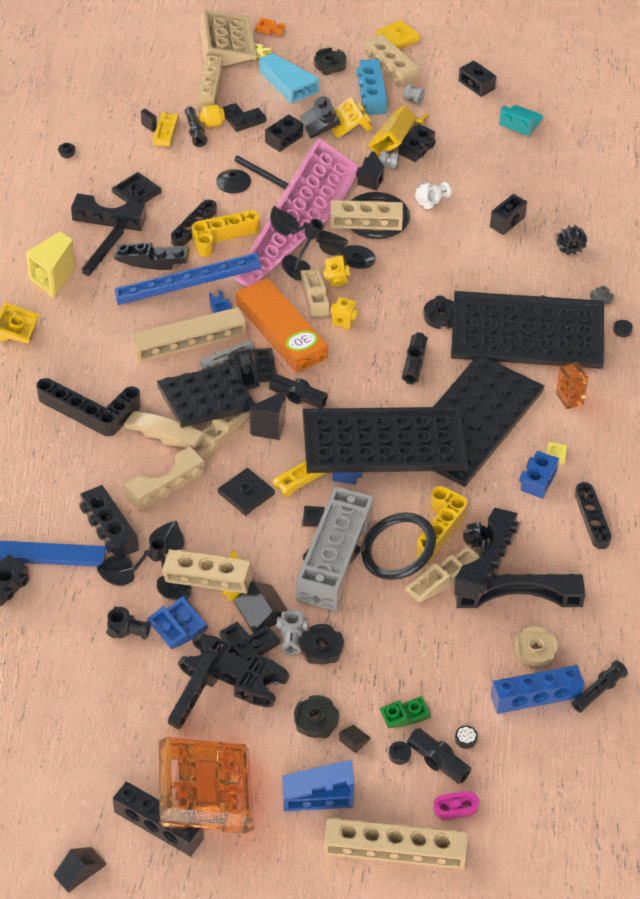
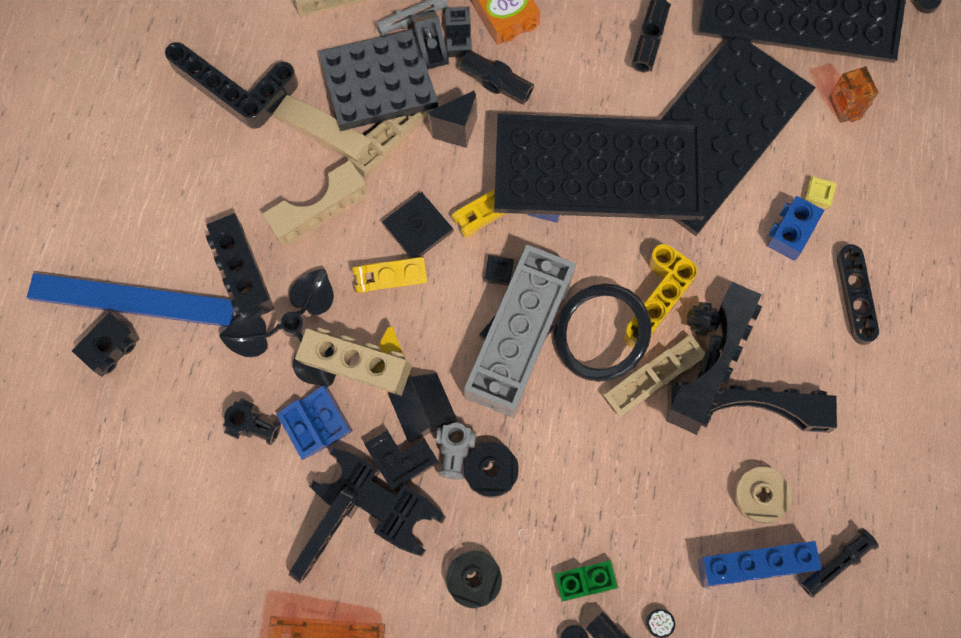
camera: 10 degrees right, 25 degrees up
(228, 521) = (390, 274): none -> yellow plate
(353, 738) = (519, 613): black slope -> none

